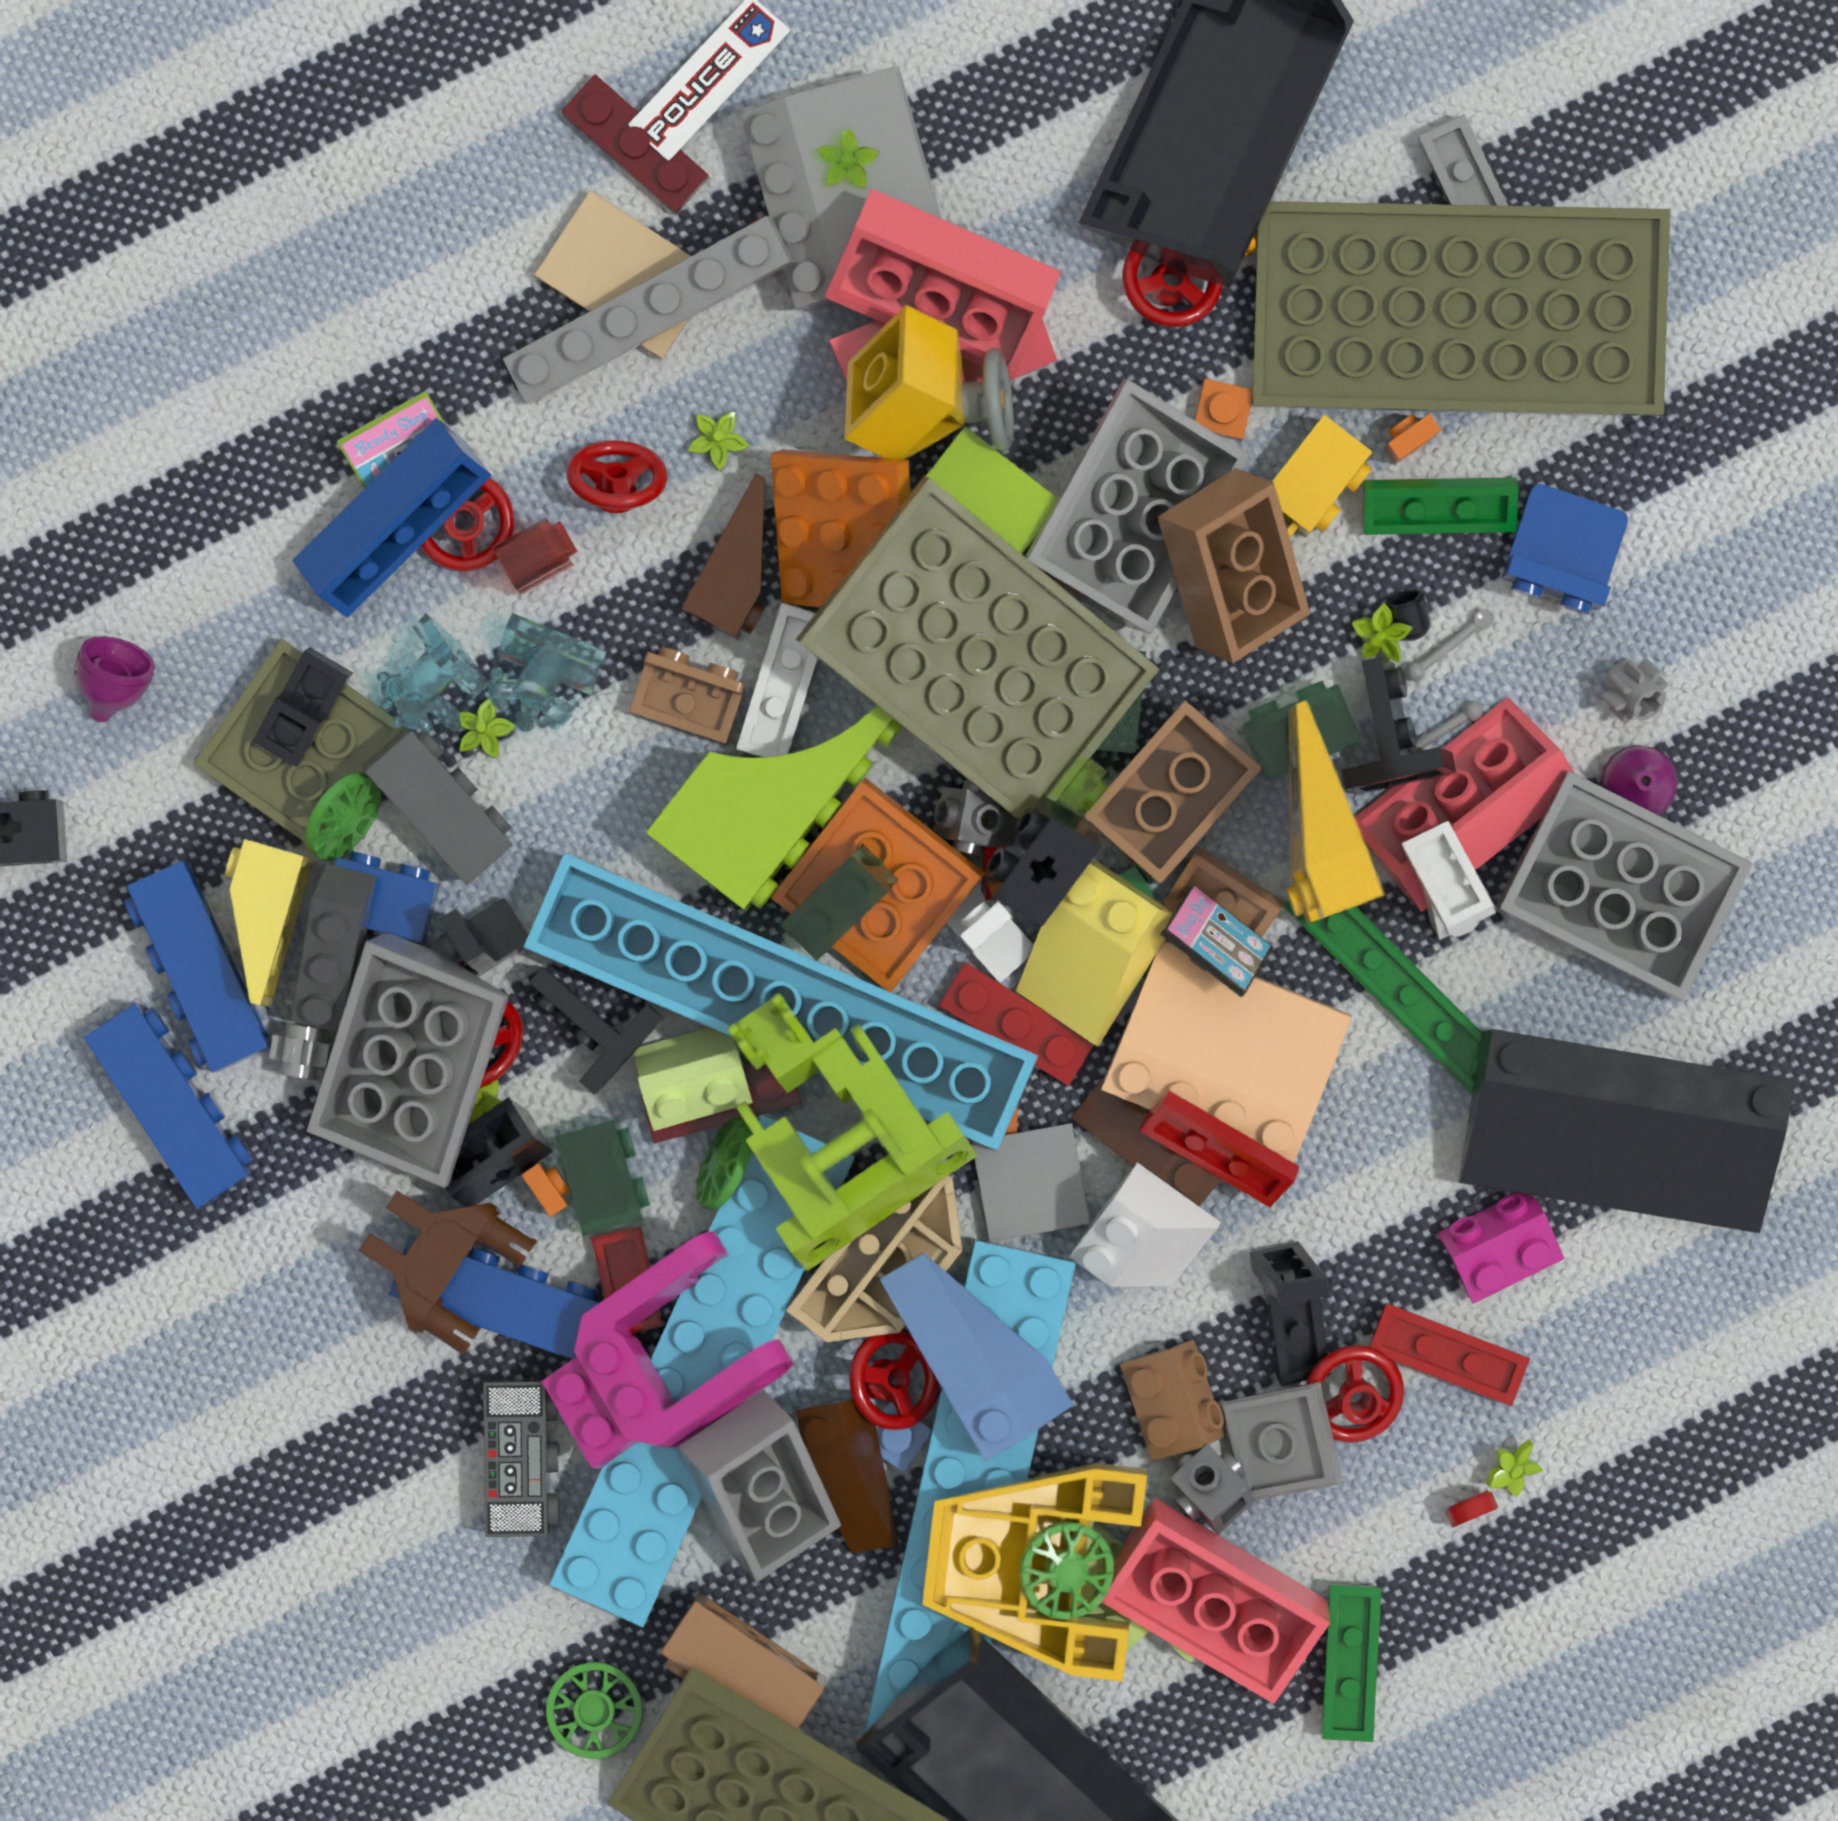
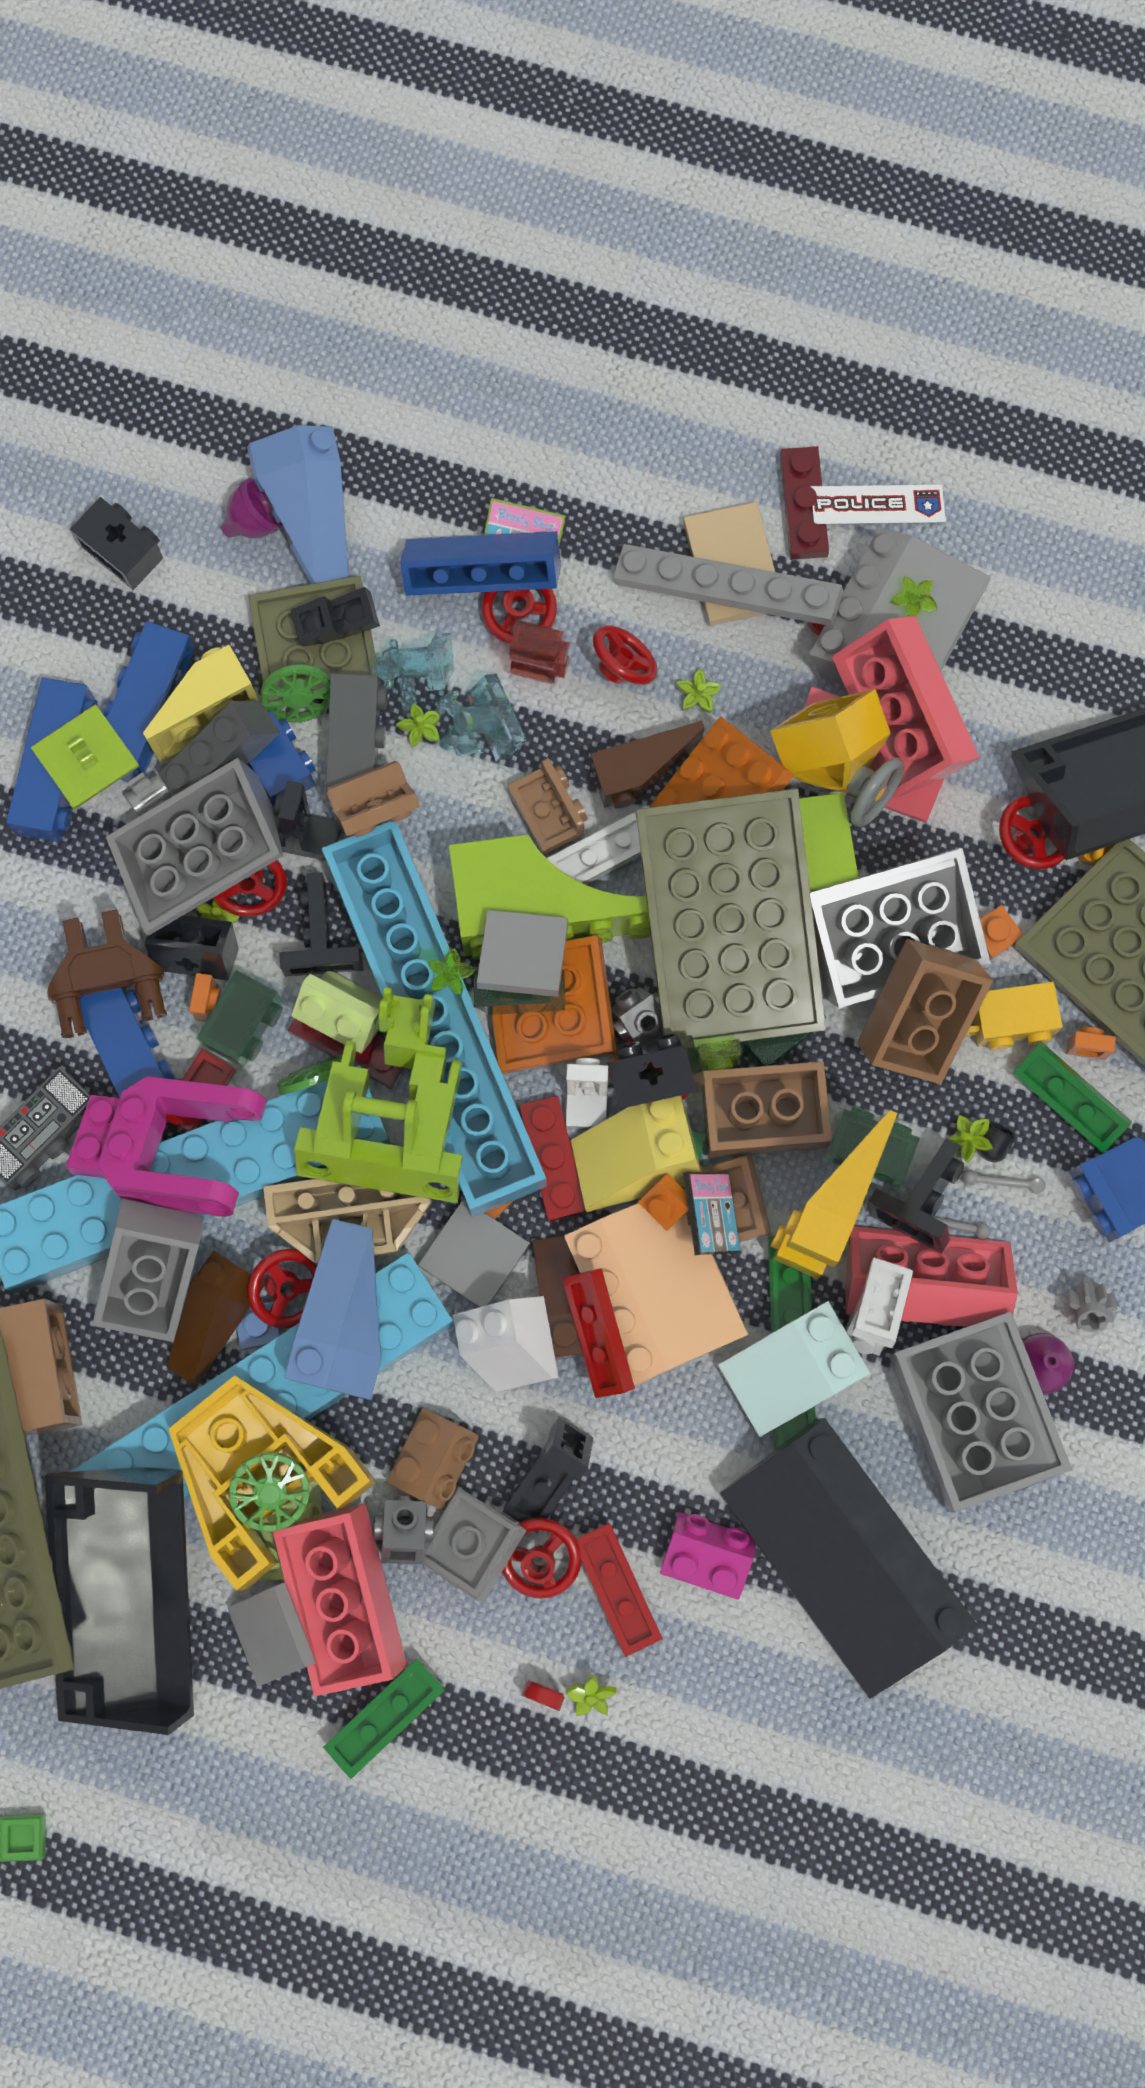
camera: 45 degrees right, 10 degrees down
(142, 605) = (304, 486): none -> medium blue wedge
(206, 1073) = (85, 756): none -> lime piece
(526, 855) = (372, 799): none -> medium nougat bracket
(764, 950) = (450, 972): none -> clear neon green plant
(819, 872) = (522, 953): none -> light grey tile
(1165, 971) = (665, 1202): none -> orange plate
(1183, 1689) = (271, 1634): none -> light grey tile
(1421, 1008) = (794, 1369): none -> light aqua slope

